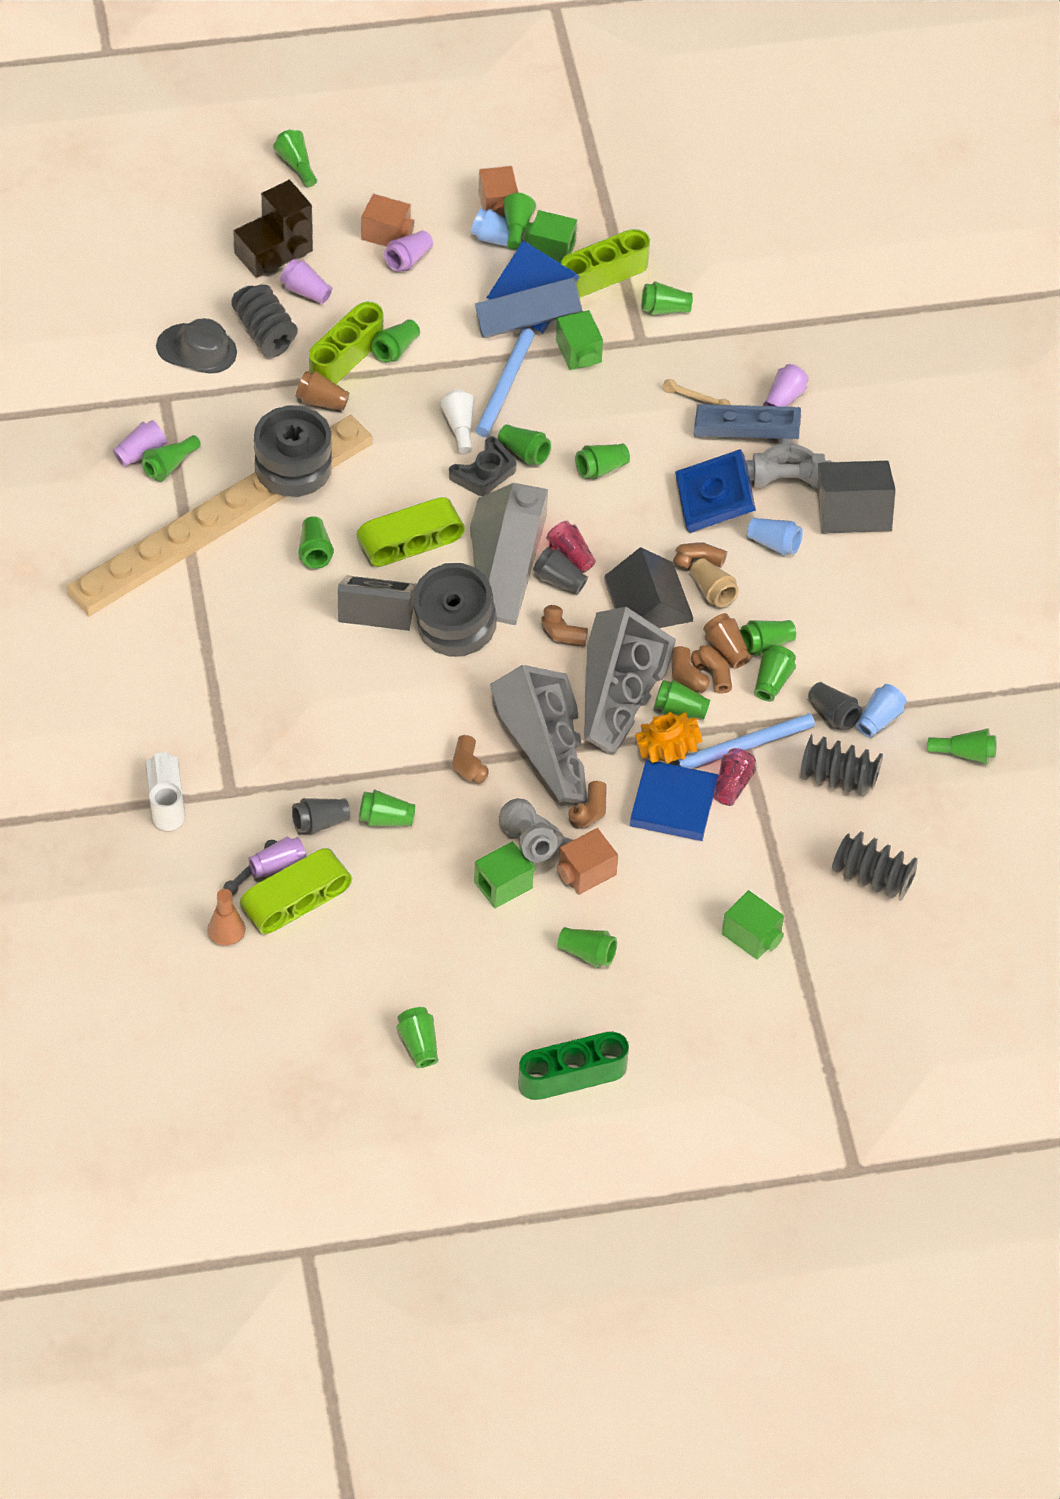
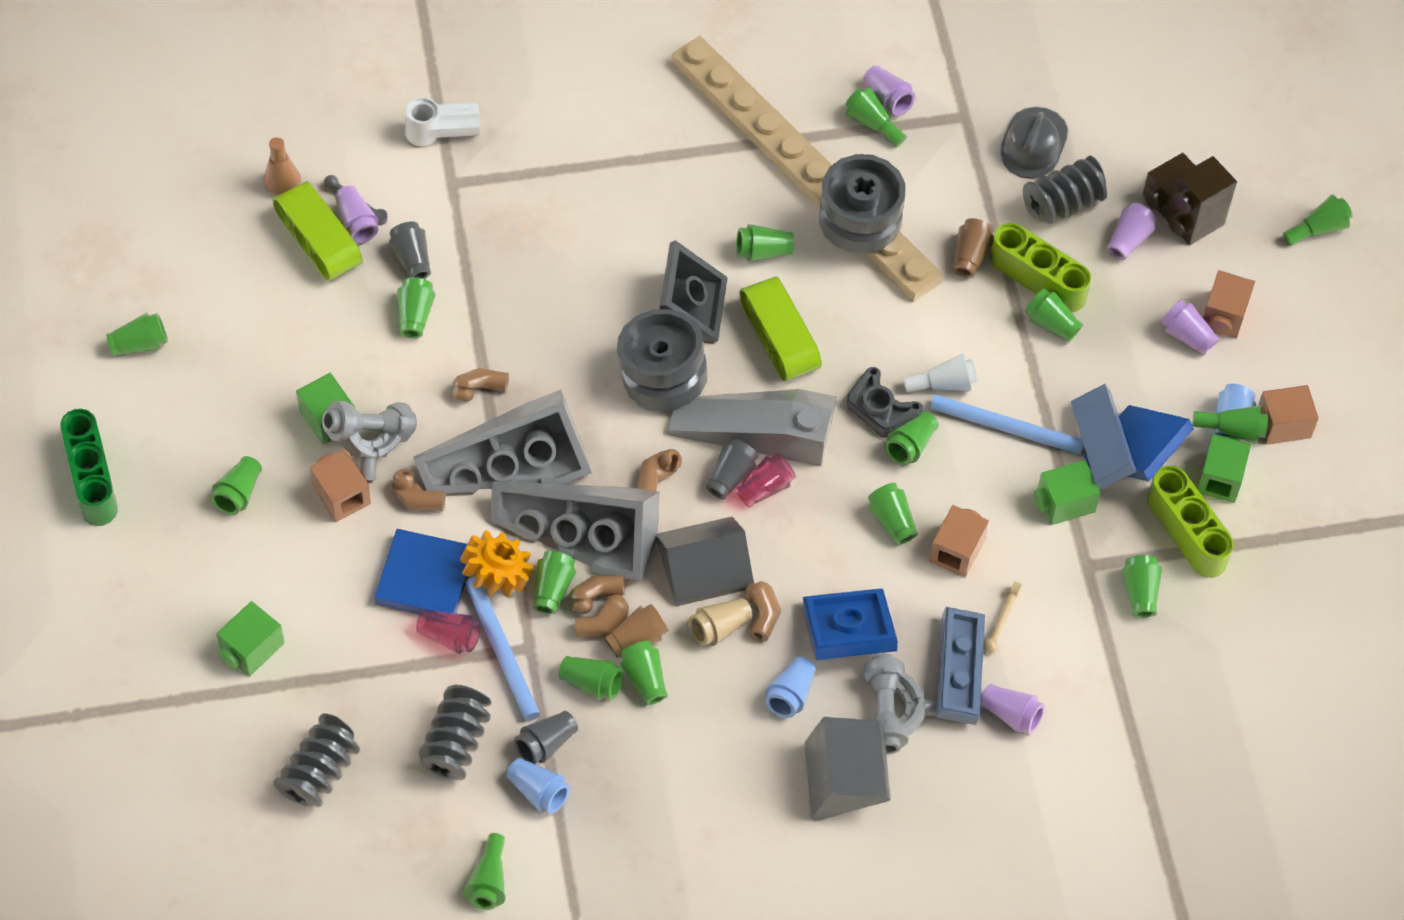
camera: 90 degrees right, 5 degrees up
(629, 414) = (959, 540): none -> nougat brick

